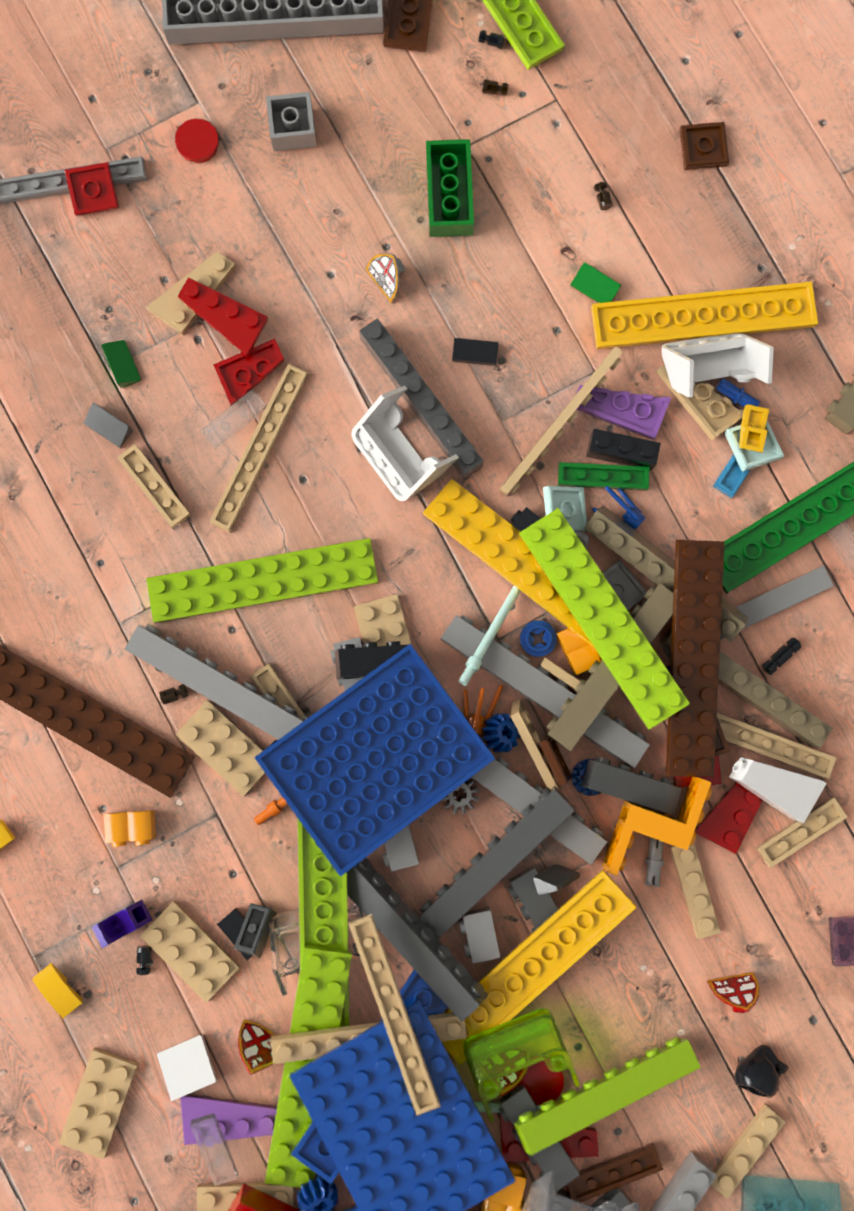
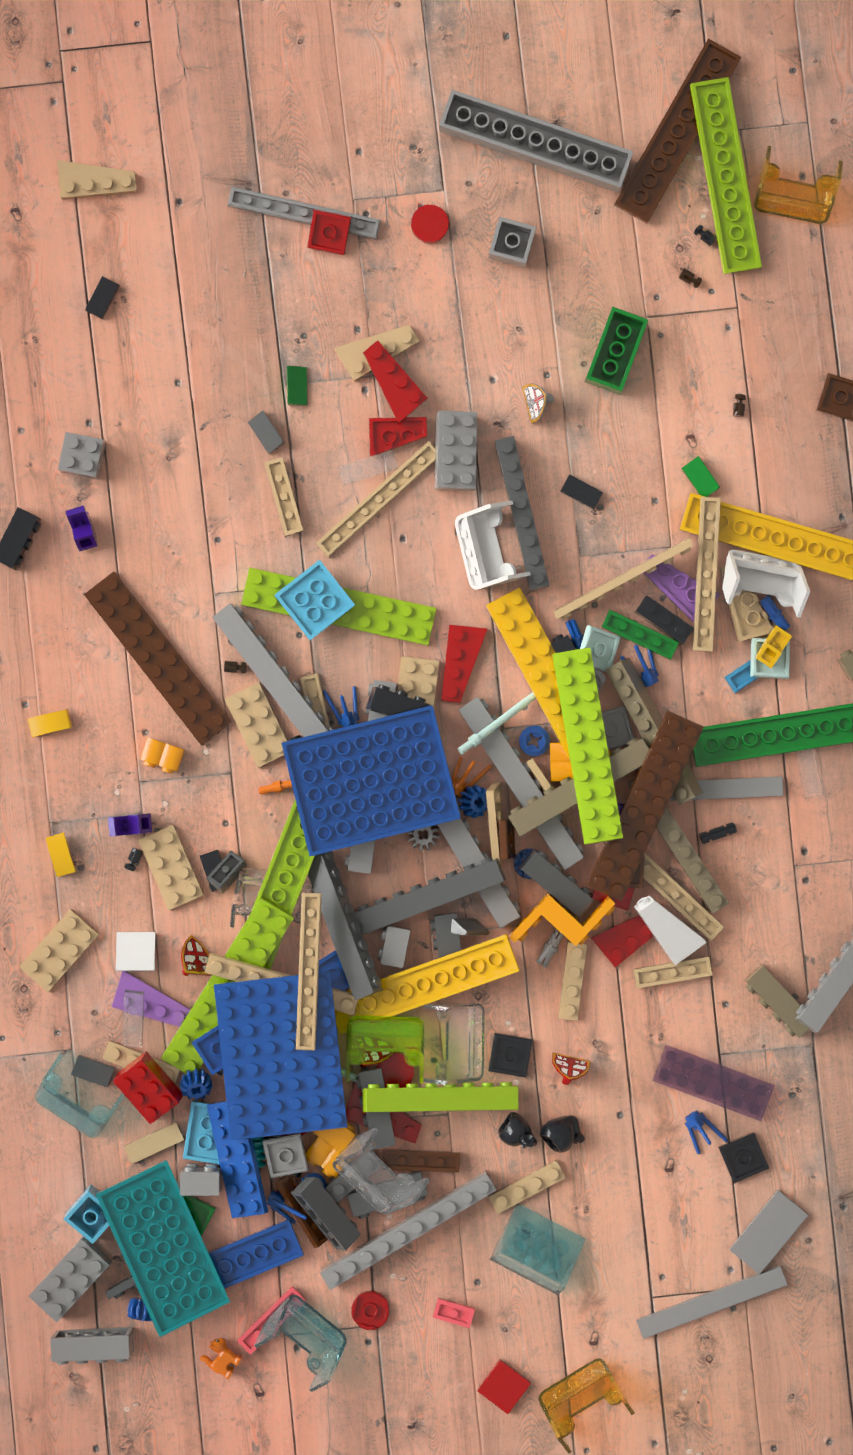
camera: 30 degrees right, 5 degrees up
(231, 583) = (314, 600): none -> medium azure plate
(321, 360) = (455, 451): none -> light grey brick
(321, 698) = (348, 718): none -> blue plant
(419, 581) = (461, 655): none -> red wing
(532, 502) = (575, 633): none -> blue axle
(605, 1016) = (463, 1043): none -> clear windscreen
(648, 381) = (706, 574): none -> tan plate
(661, 1004) = (510, 1055): none -> black tile
(708, 1093) = (516, 1131): none -> black piece

